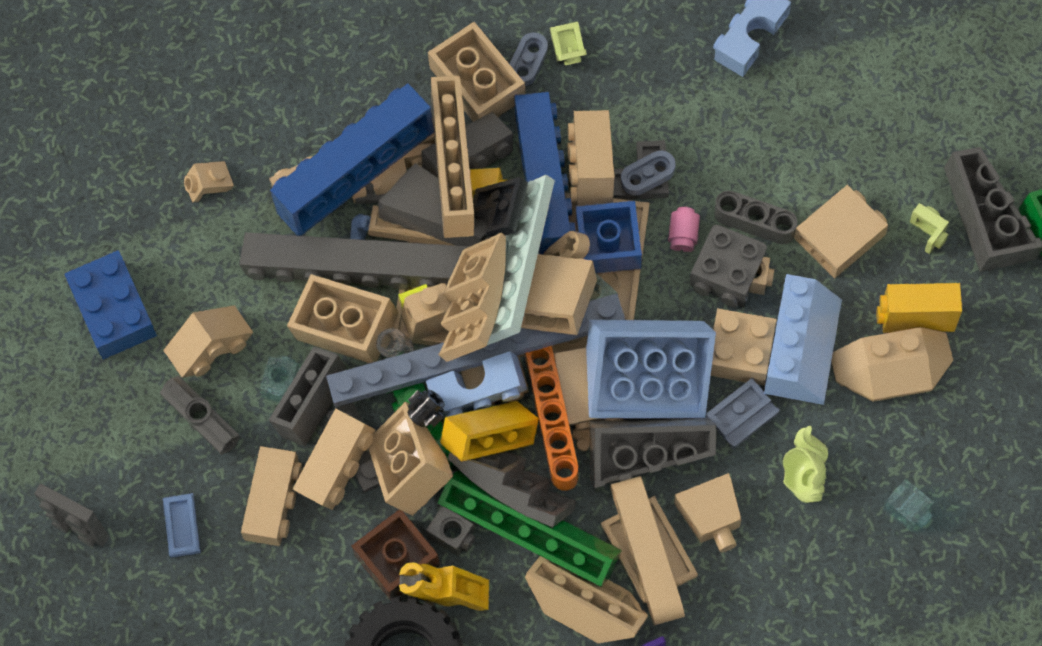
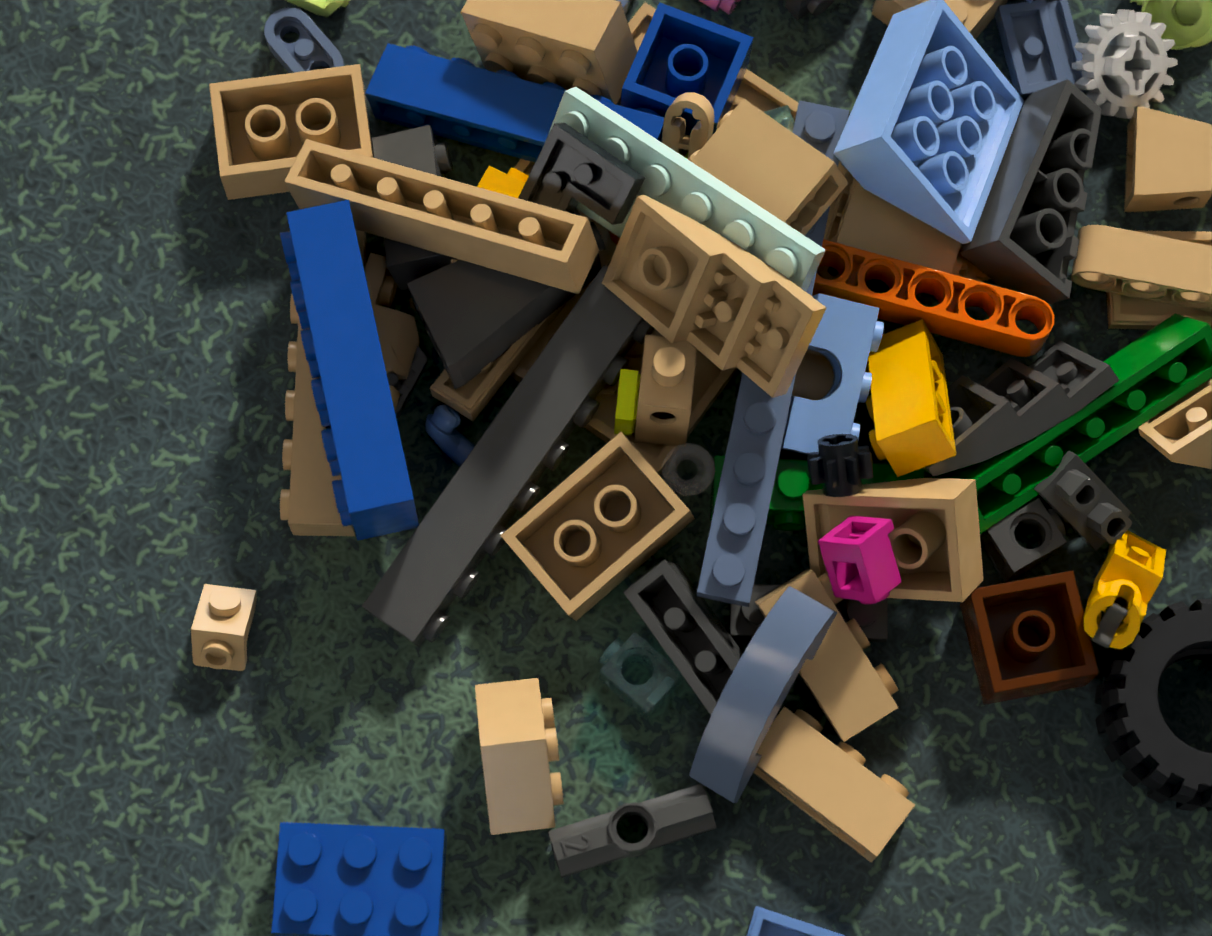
camera: 70 degrees left, 5 degrees up
(292, 426) = (757, 691): none -> sand blue slope
(380, 442) = (860, 559): none -> dark pink brick
(485, 547) = (1085, 502): none -> dark grey hips
(747, 447) = (1124, 62): none -> white gear

